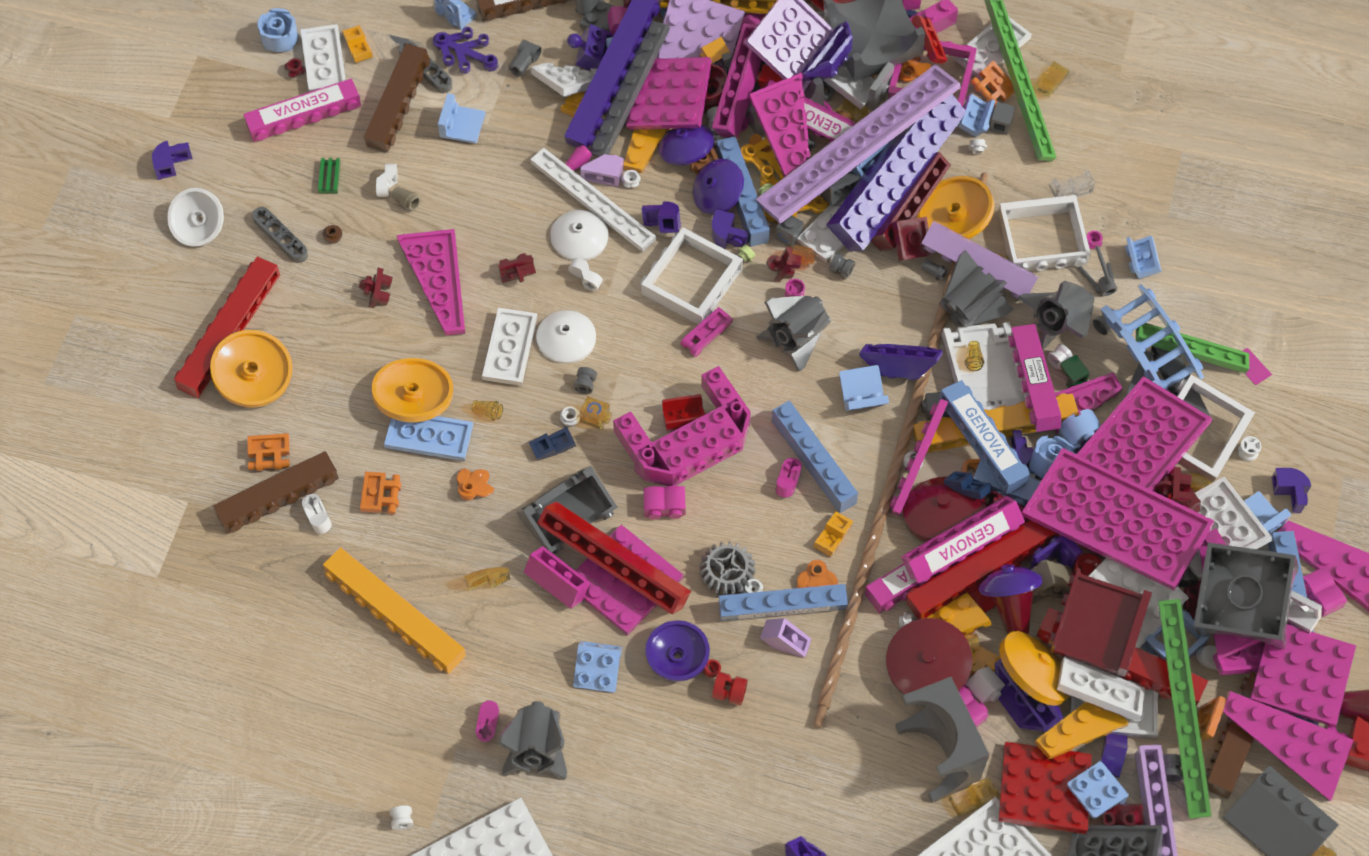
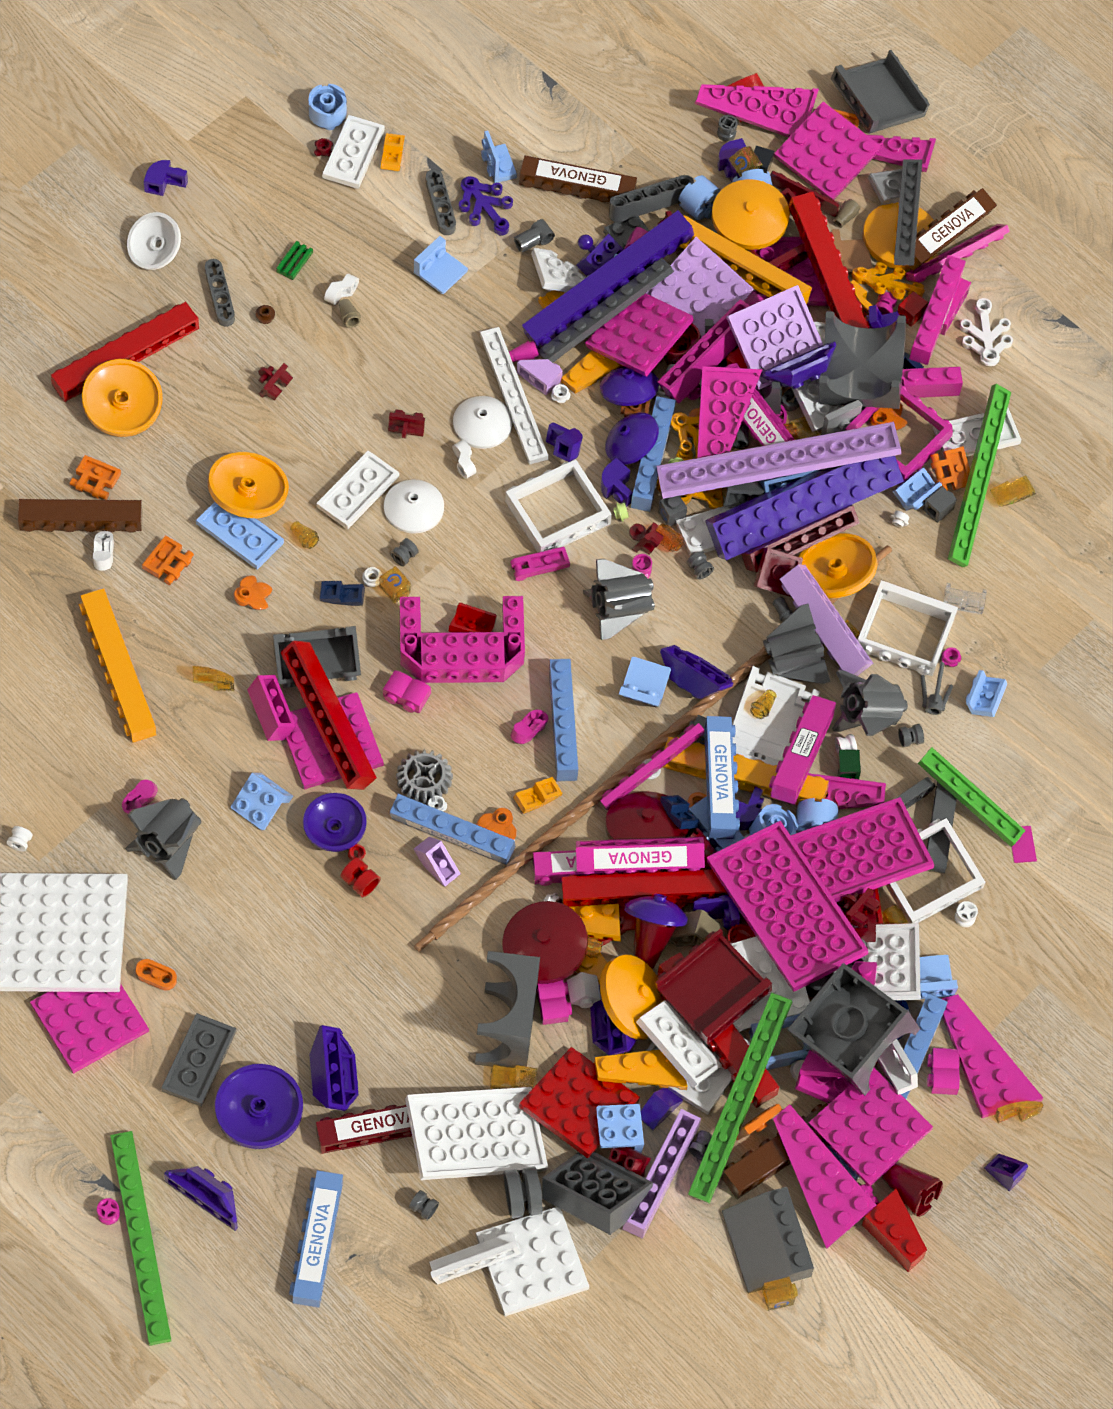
camera: 25 degrees right, 0 degrees up
(302, 110) = (306, 189): dark pink brick -> none
(396, 98) = (395, 218): reddish brown brick -> none
(437, 270) = (337, 387): dark pink wing -> none
(714, 50) = (703, 311): light orange brick -> none
(931, 42) = (911, 397): red plate -> none
(1138, 348) = (912, 771): light blue fence -> none
(1293, 483) = (983, 963): dark purple brick -> none

